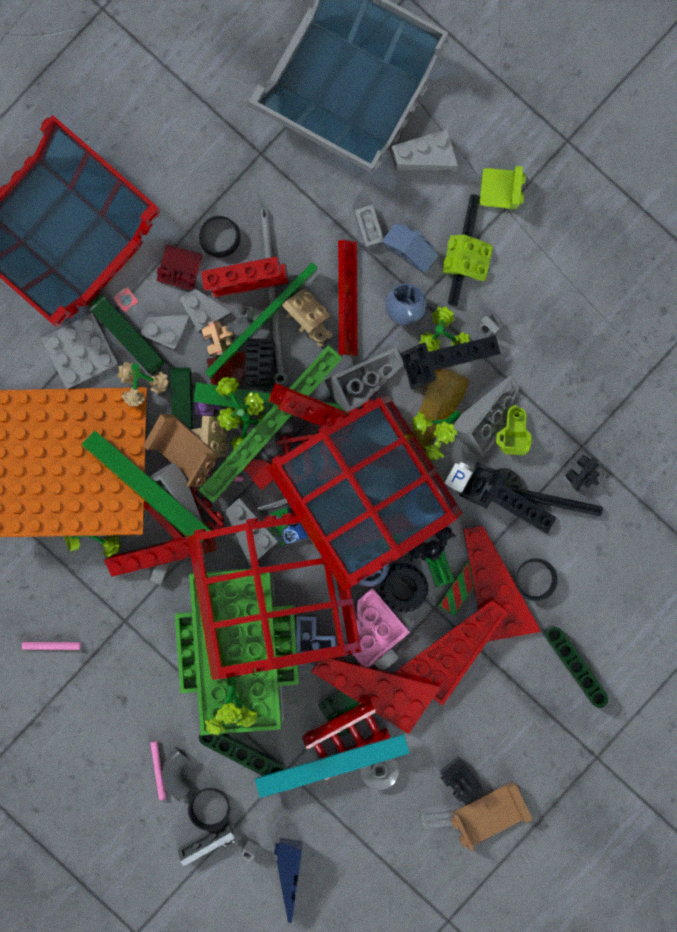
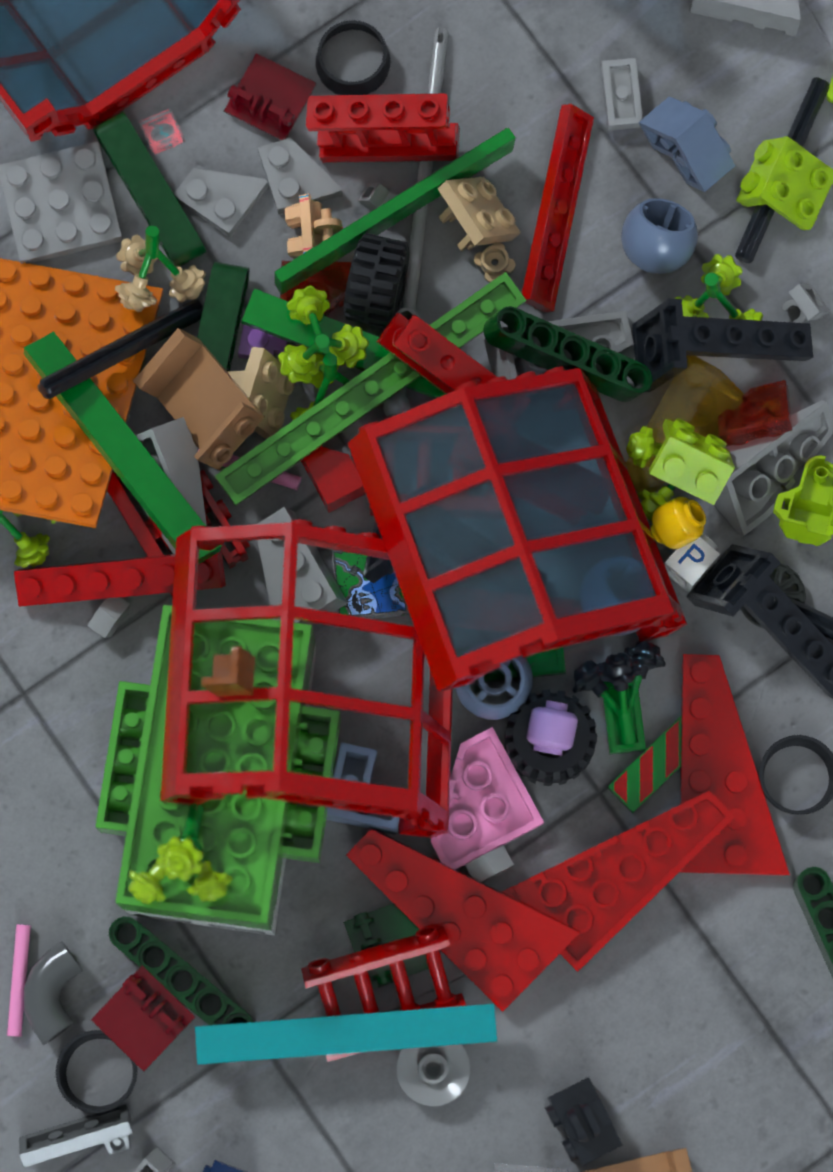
camera: 10 degrees right, 10 degrees down
(132, 431) = (120, 349): none -> black axle
(226, 778) = (143, 1018): none -> dark red hinge
(234, 612) = (231, 674): none -> dark orange panel
(362, 382) = (552, 355): none -> dark green beam
(404, 587) = (552, 728): none -> lavender head
(447, 461) = (678, 522): none -> yellow head
(449, 428) = (693, 461): none -> lime bracket
(477, 392) = (762, 414): none -> clear red plate

